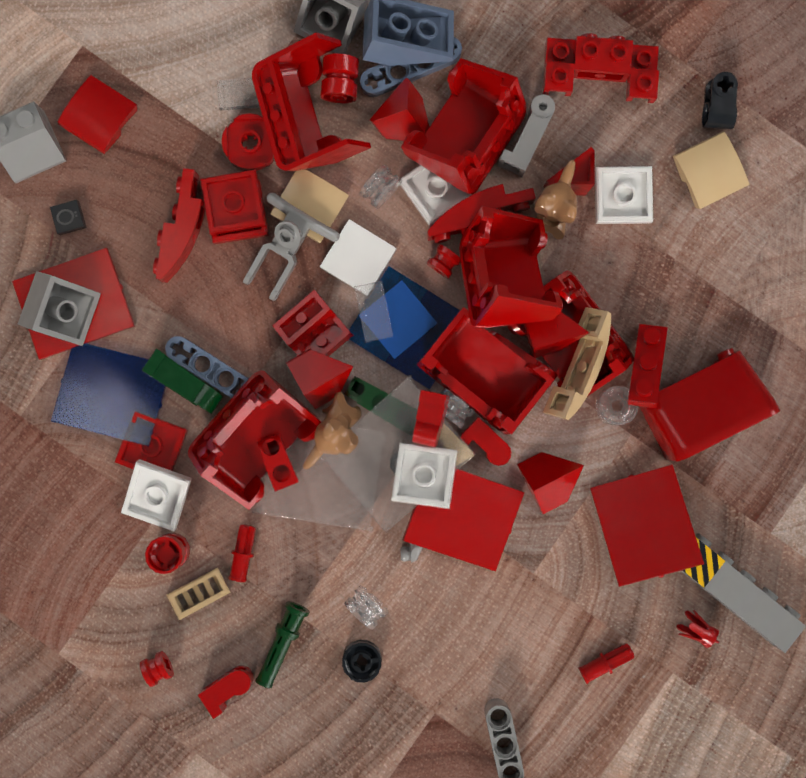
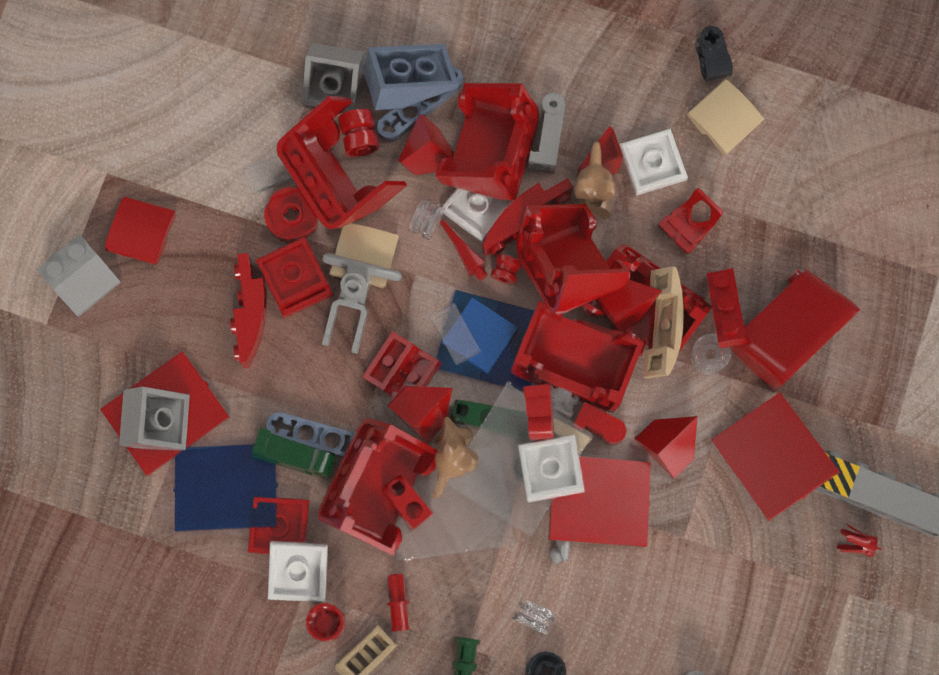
camera: 20 degrees left, 10 degrees down
(68, 217) = (137, 333): black tile -> none
(357, 256) = (423, 289): white tile -> none
(413, 243) = (472, 262): none -> red piece
(601, 60) = (594, 48): red bracket -> none
(606, 662) = (781, 602): red axle -> none
(630, 268) = (682, 228): none -> red piece

